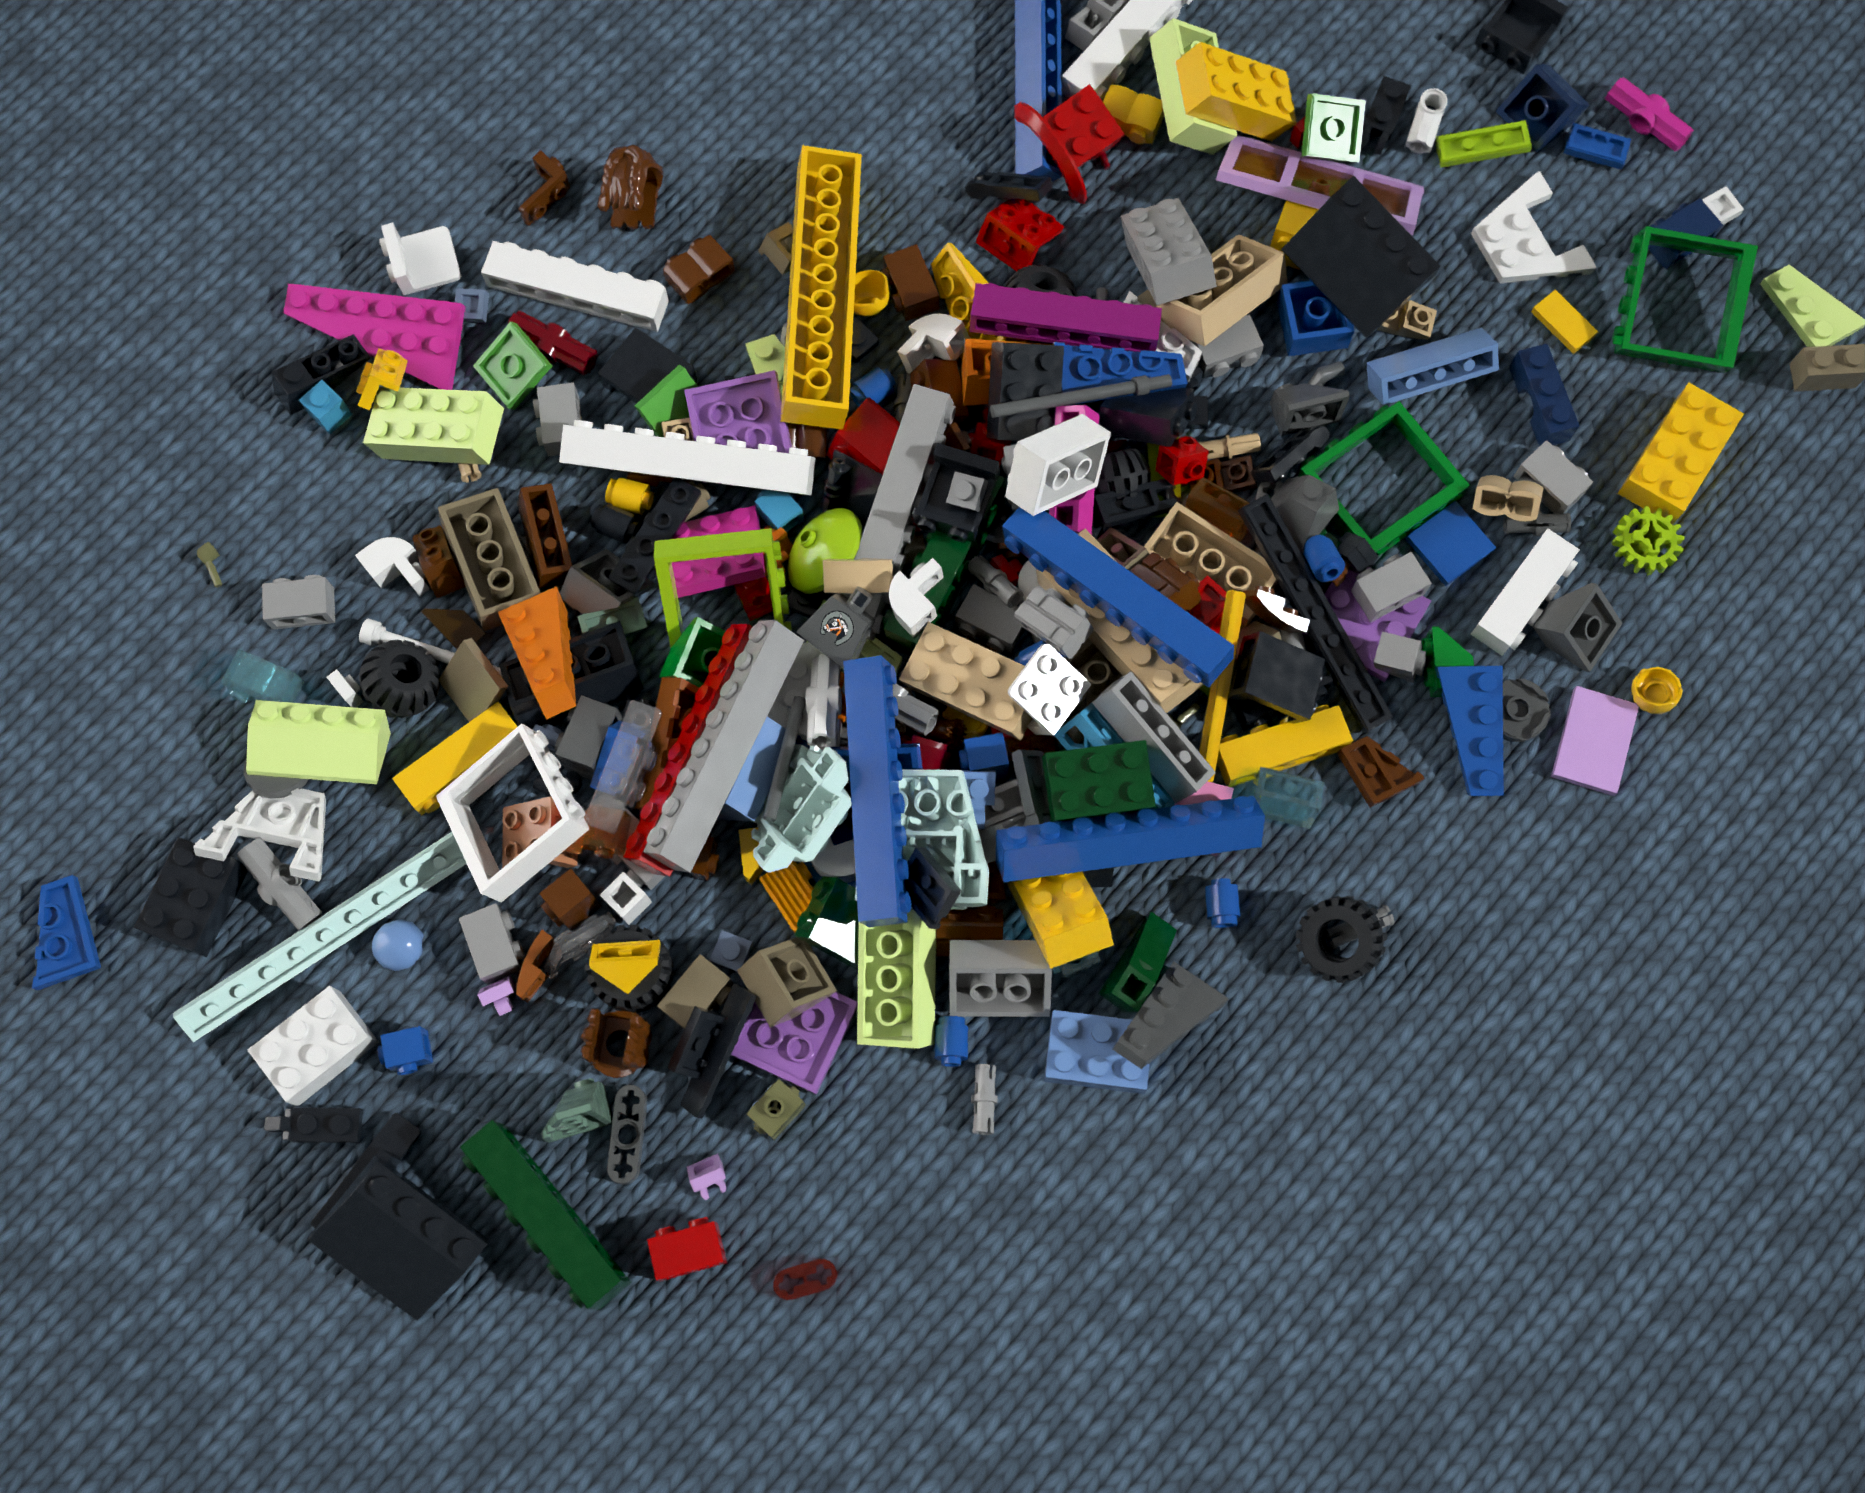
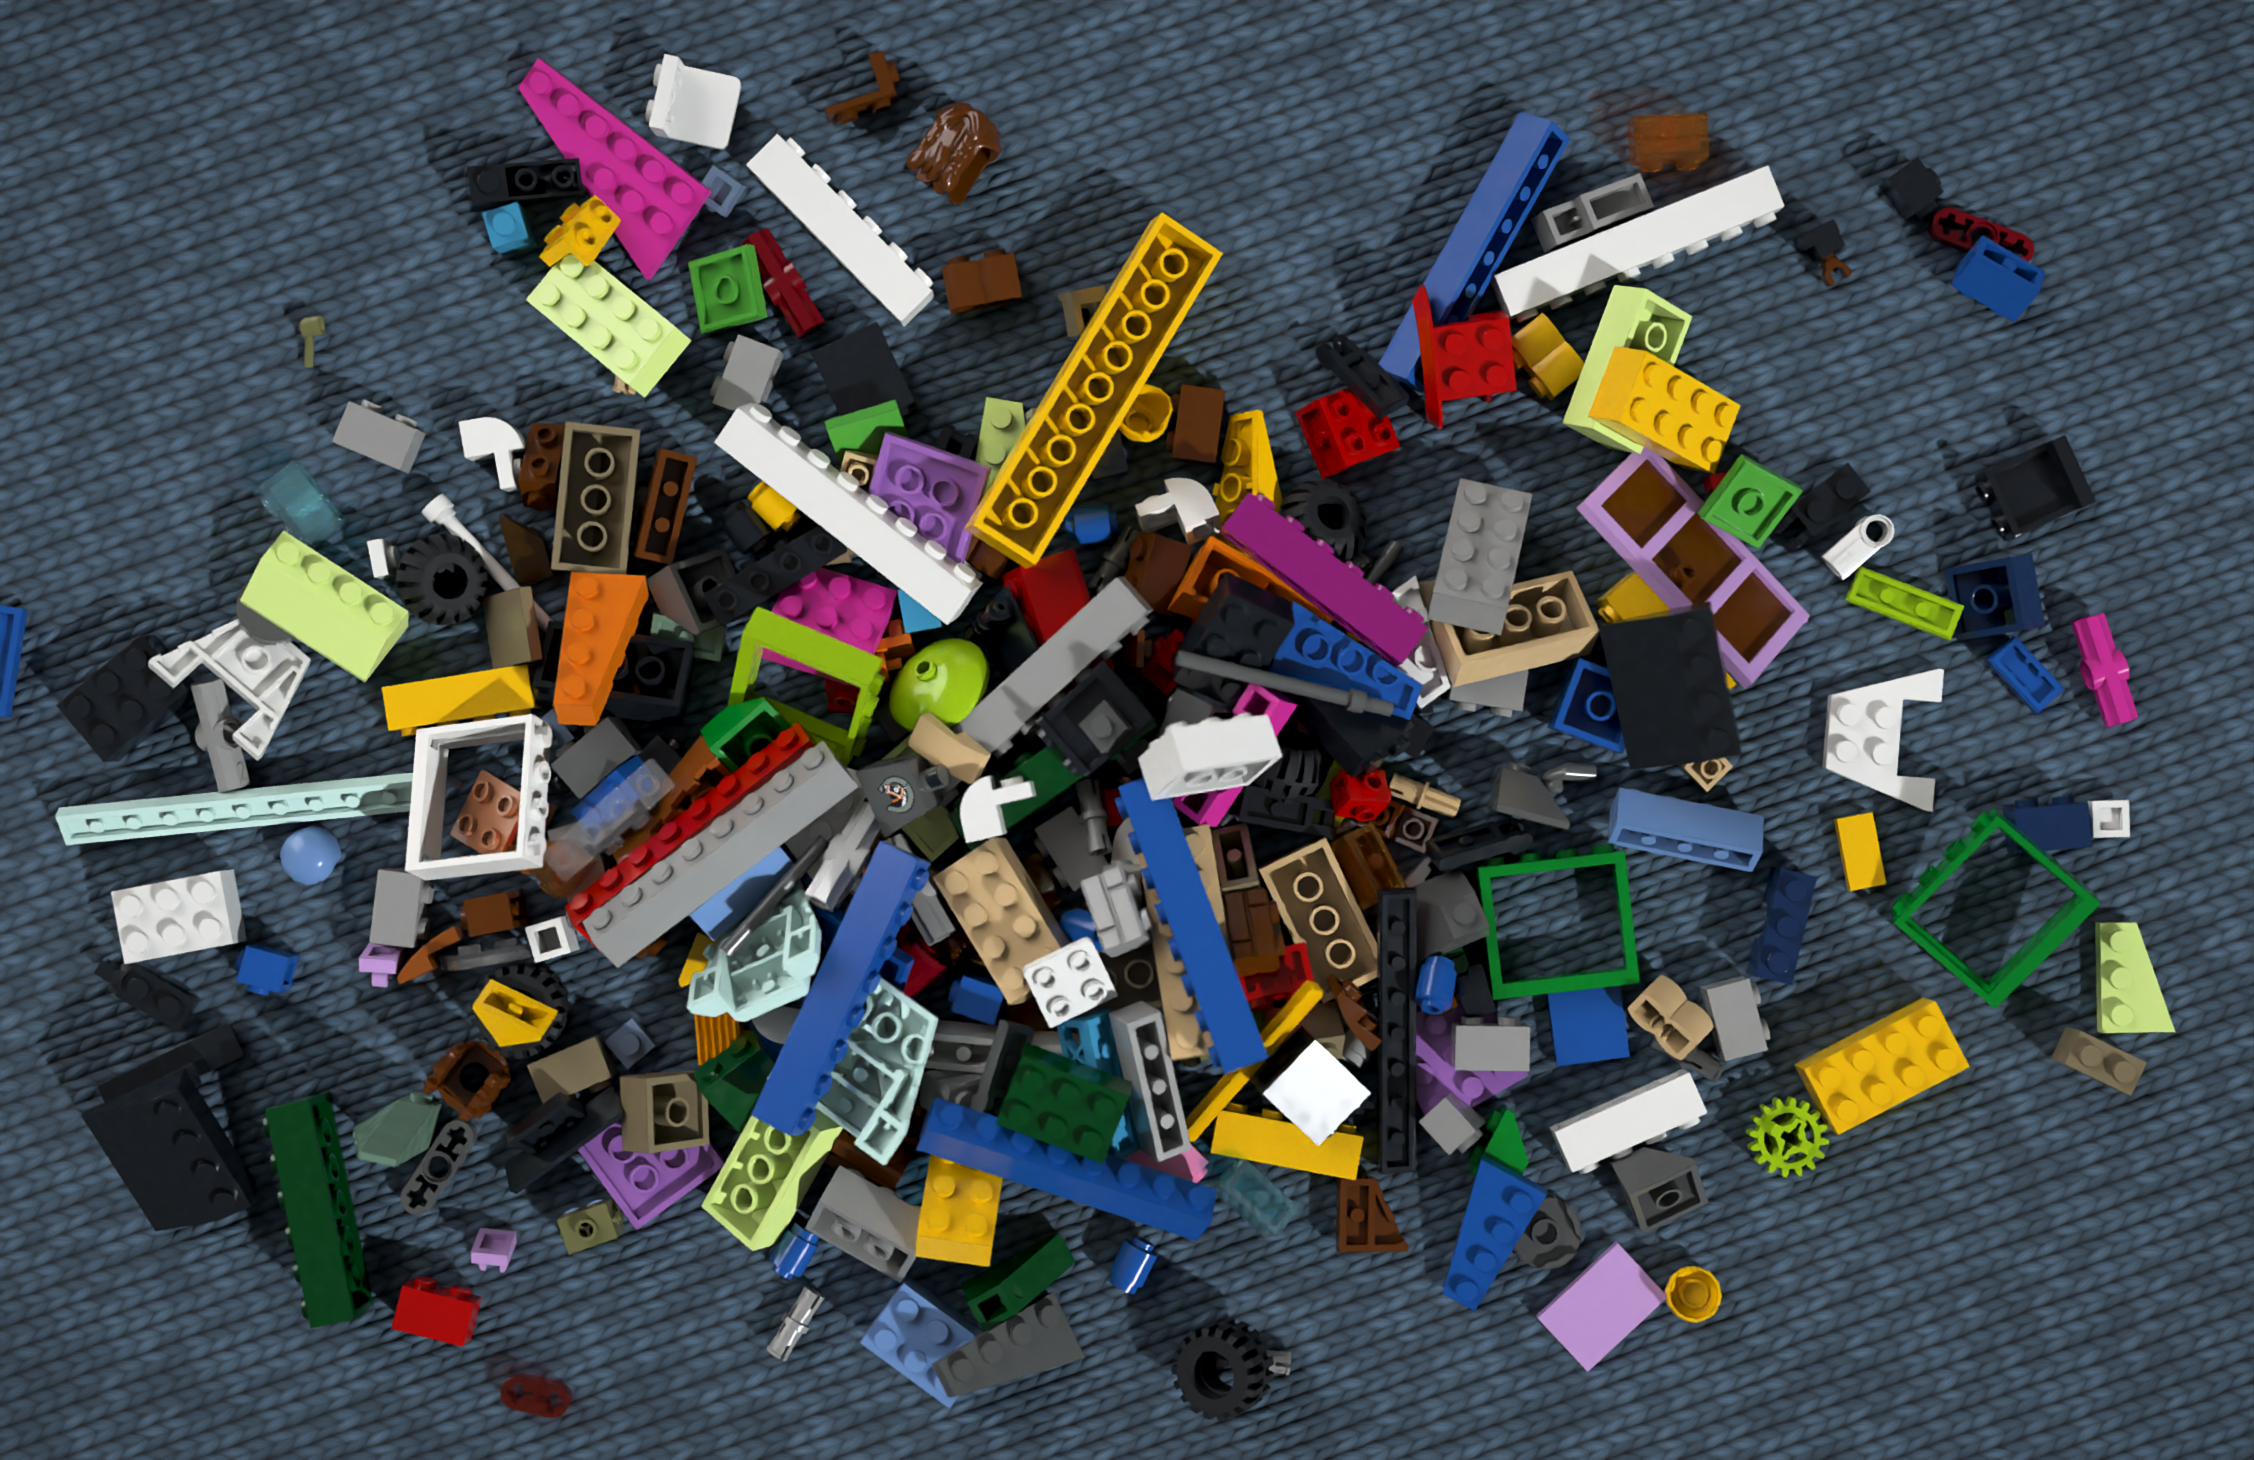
camera: 25 degrees right, 15 degrees up
(930, 888) = (840, 1116): black plate -> none
(982, 792) = (949, 1039): medium blue plate -> none

